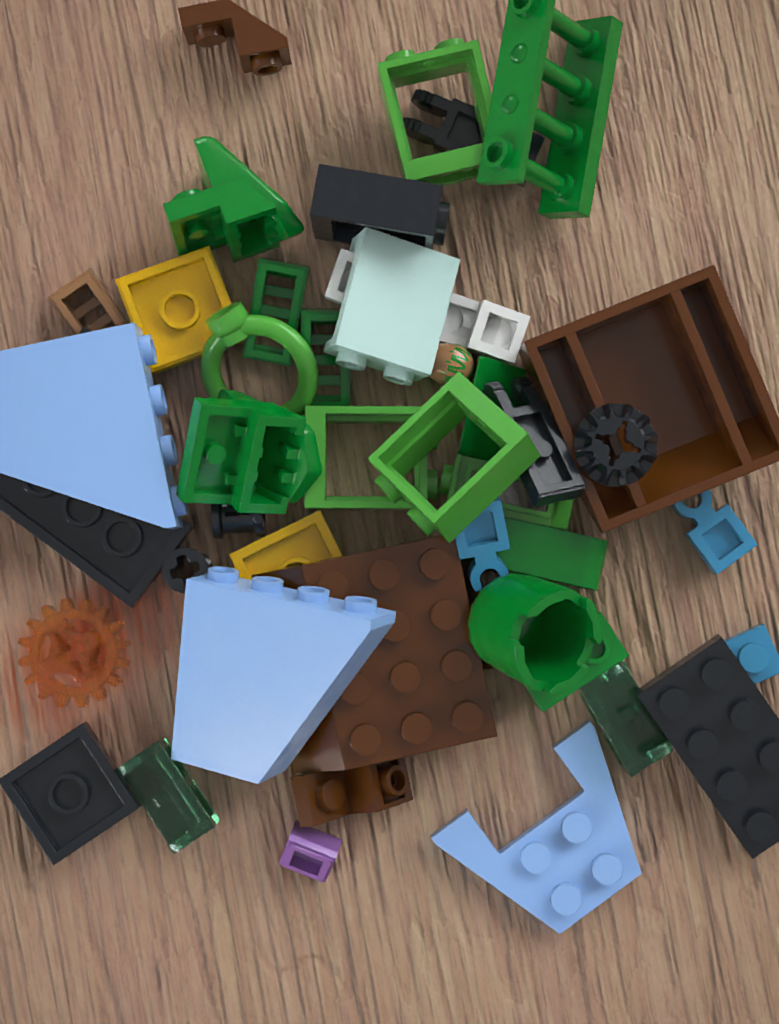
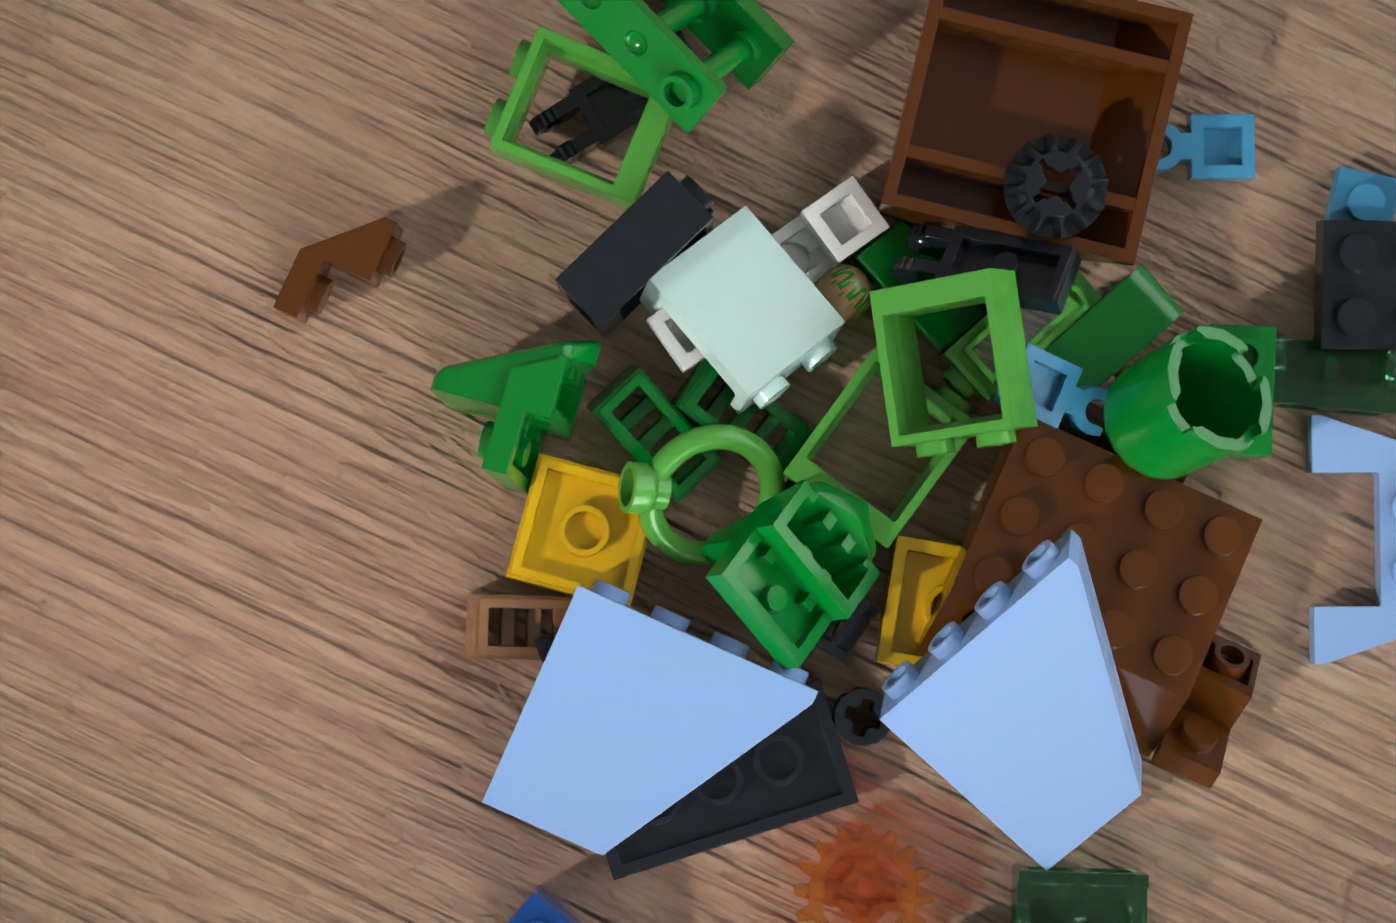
camera: 50 degrees left, 0 degrees up
(310, 852) = (1240, 798): medium lavender slope -> none

